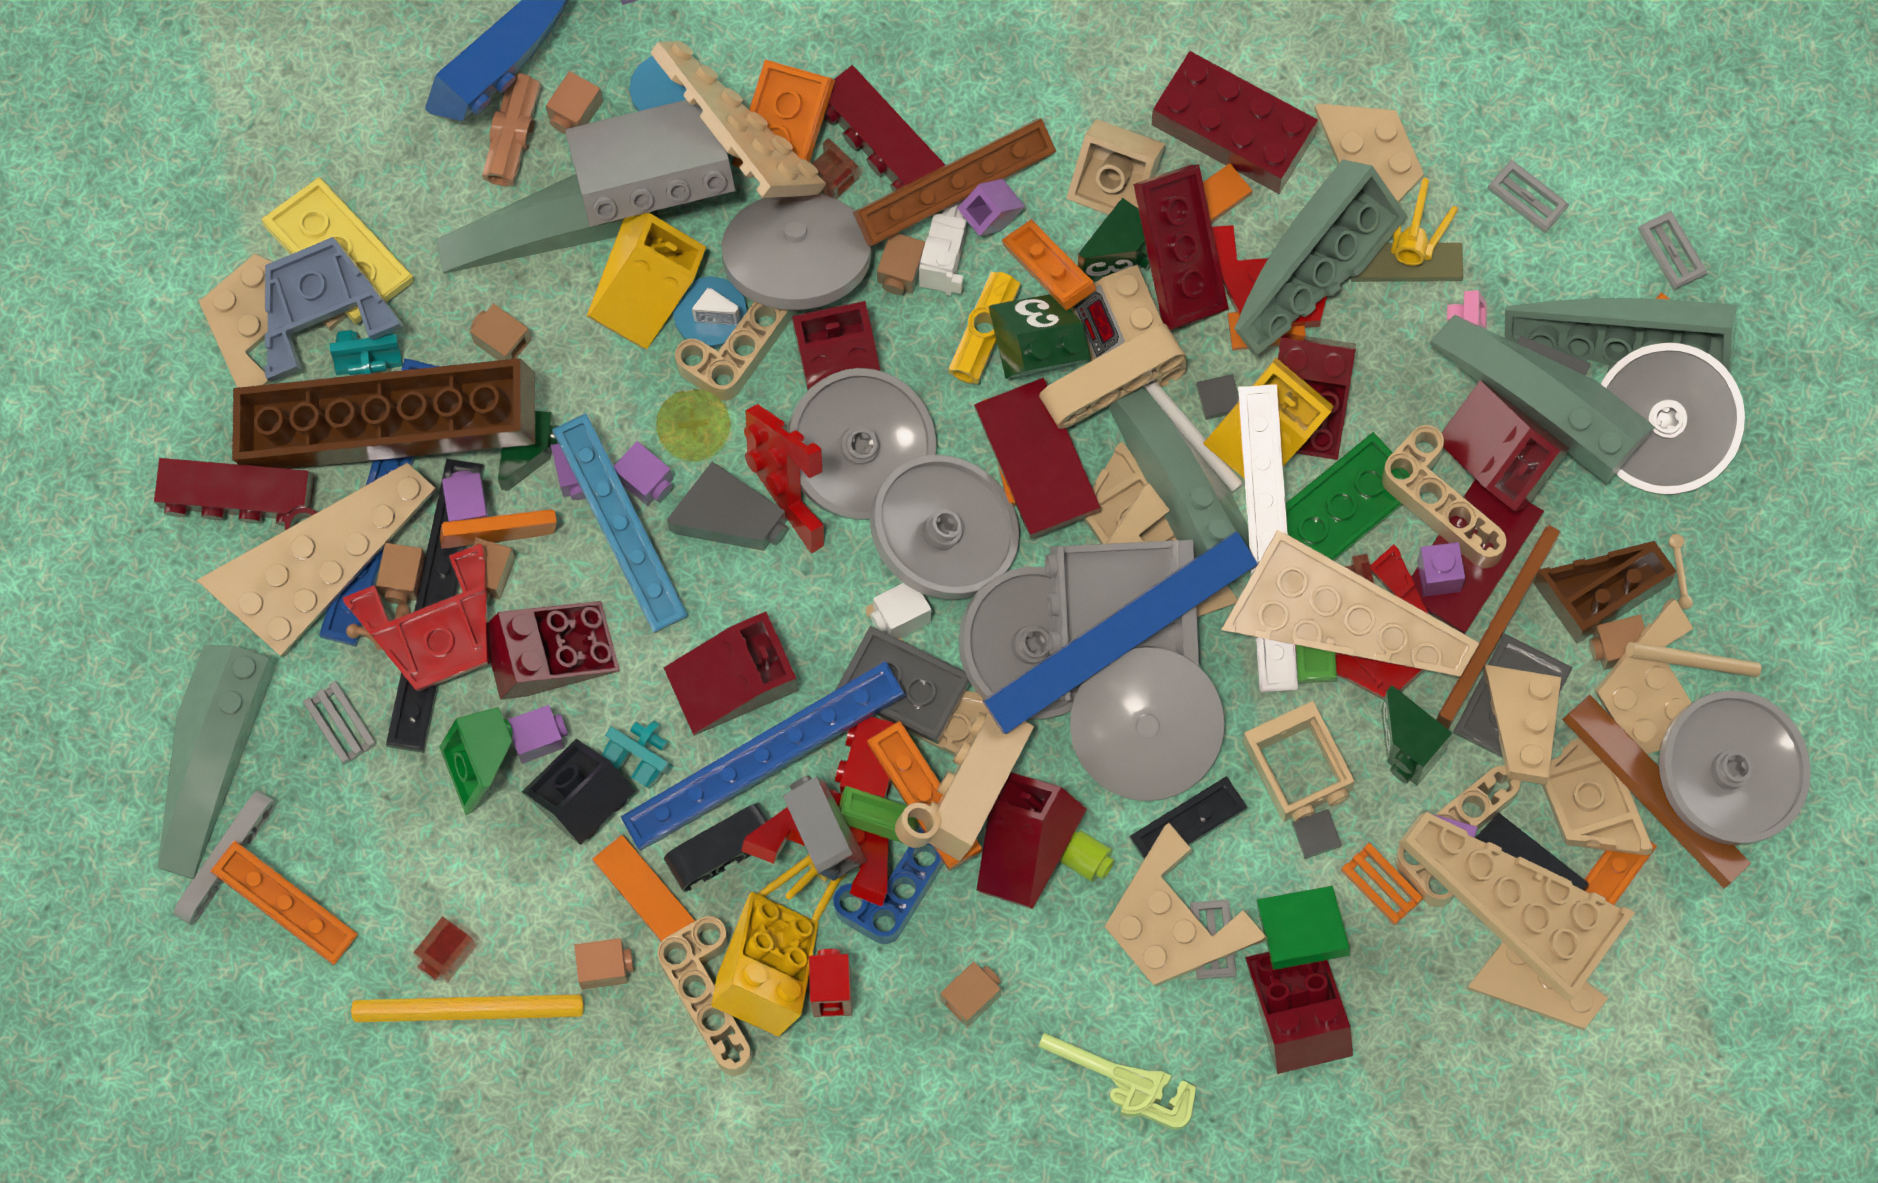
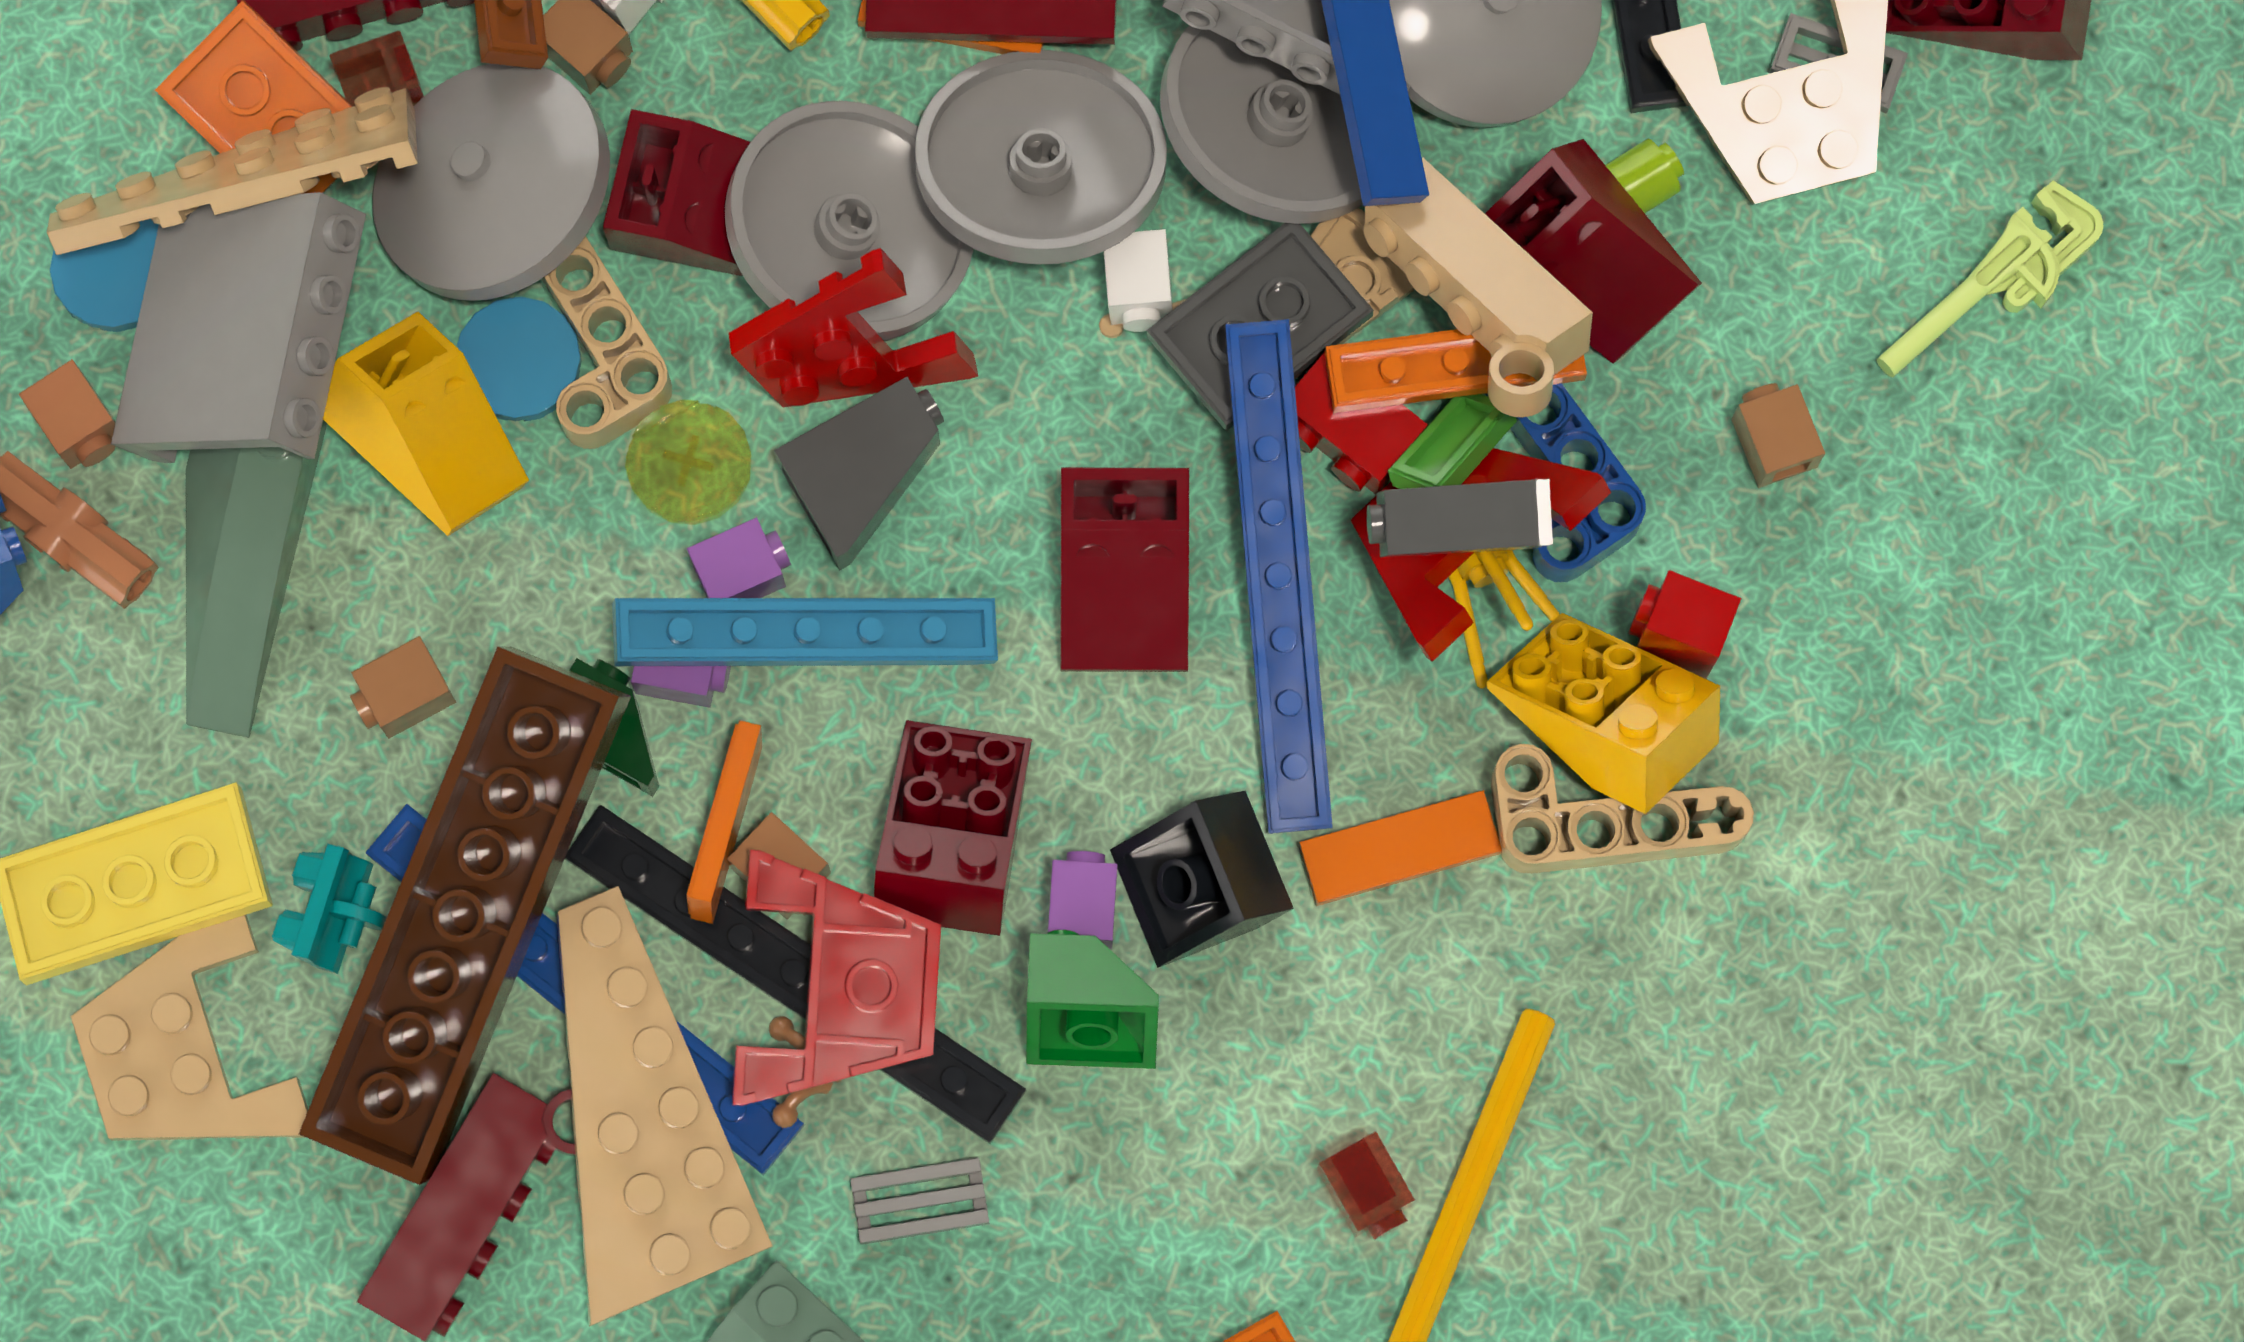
camera: 70 degrees left, 5 degrees up
(312, 289) = (188, 941): sand blue wing -> none
(400, 573) = (724, 1003): medium nougat brick -> none
(464, 496) = (655, 849): medium lavender brick -> none
(603, 963) = (1493, 954): nougat brick -> none
(651, 765) = (1210, 750): teal hips -> none
(714, 848) = (1389, 703): black beam -> none
(715, 309) = (528, 338): white slope -> none

